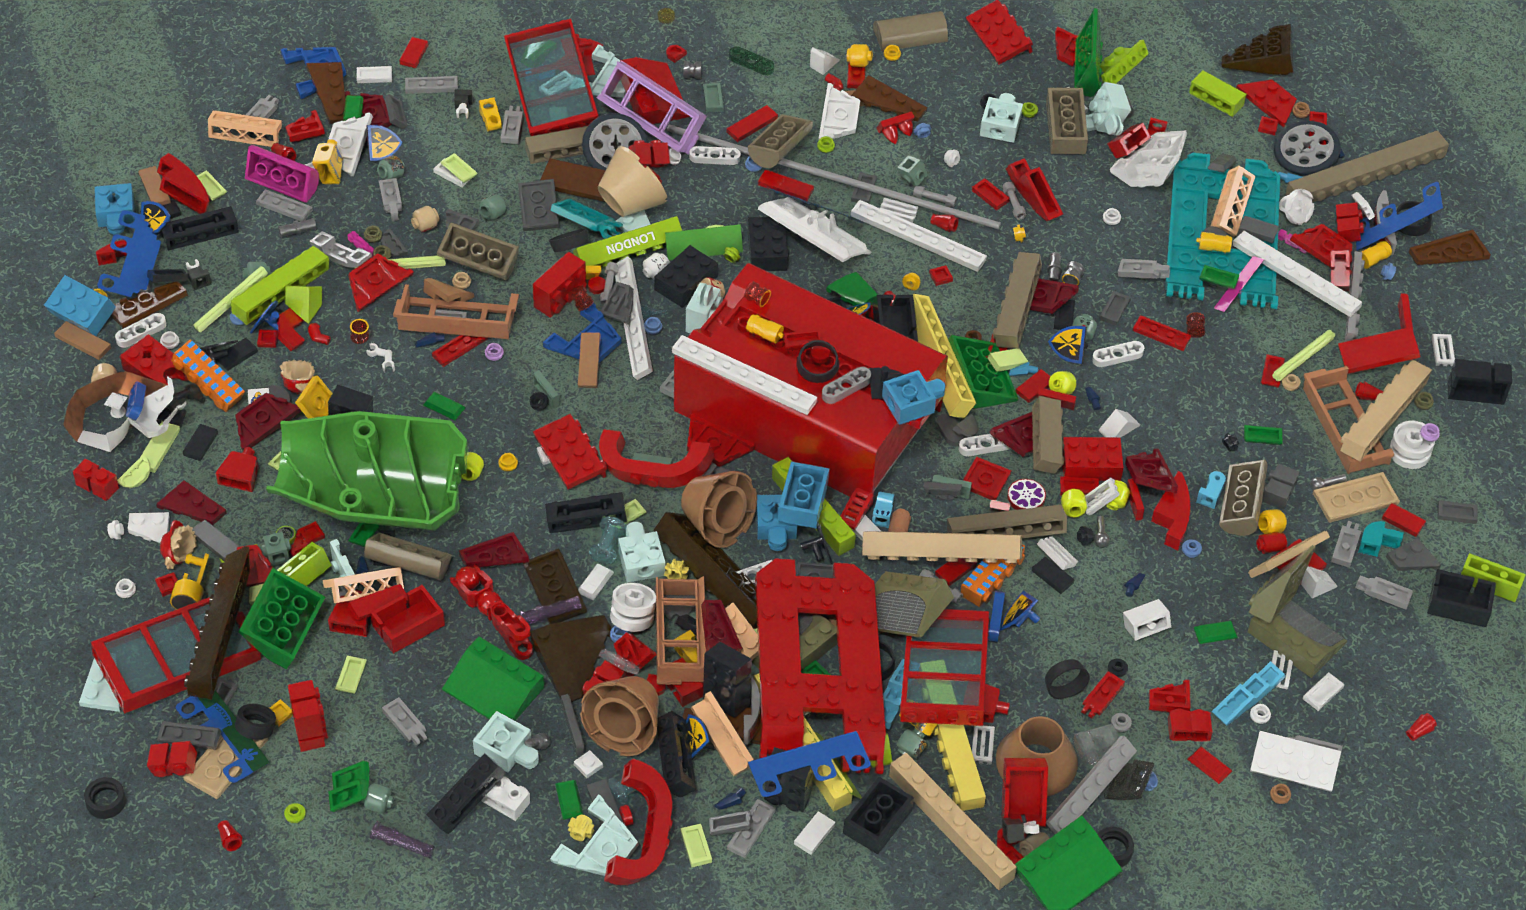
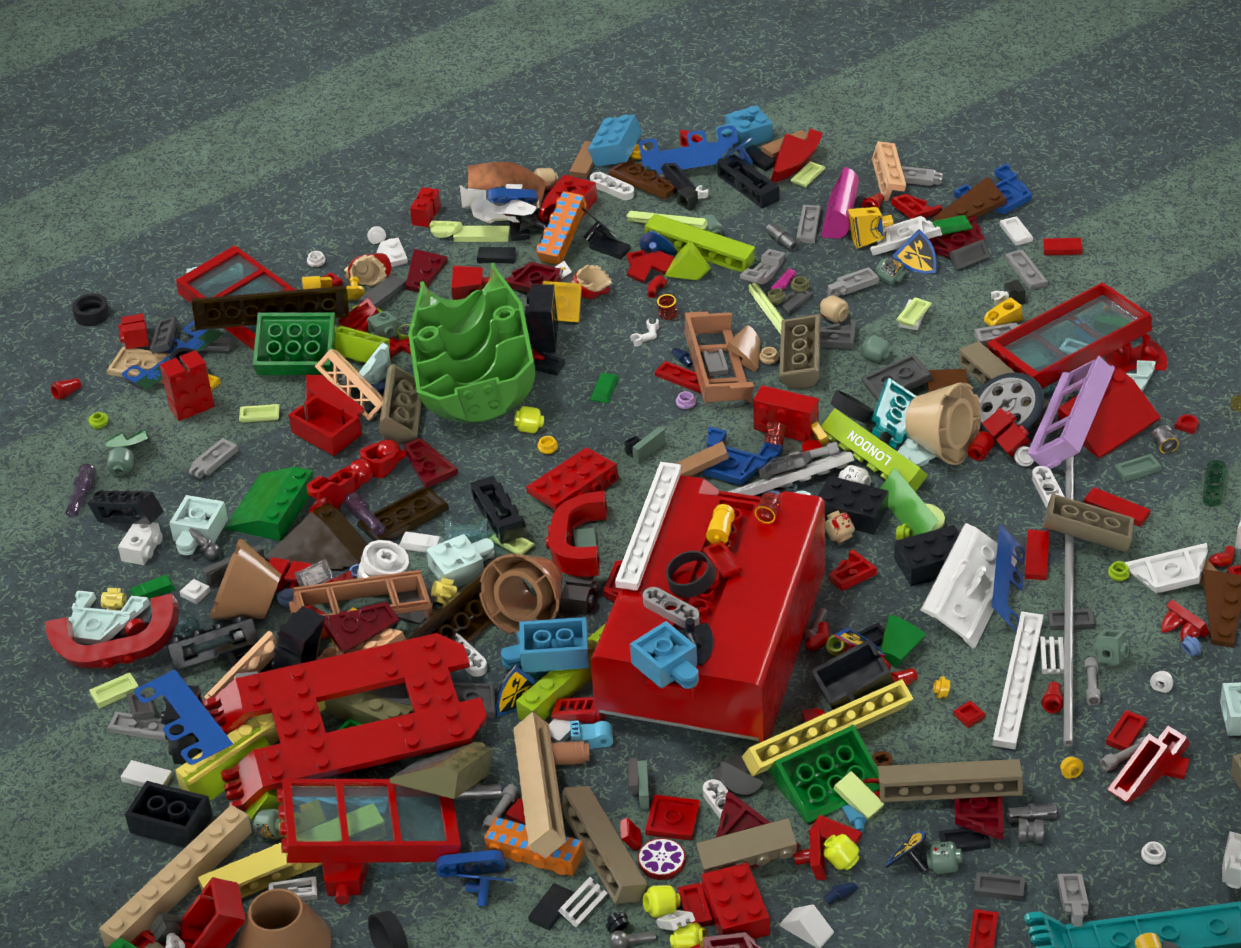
camera: 80 degrees right, 10 degrees down
(169, 340) = (607, 204): white plate -> none
(375, 279) = (737, 297): red wing -> none
(1123, 348) = (922, 893): white beam -> none

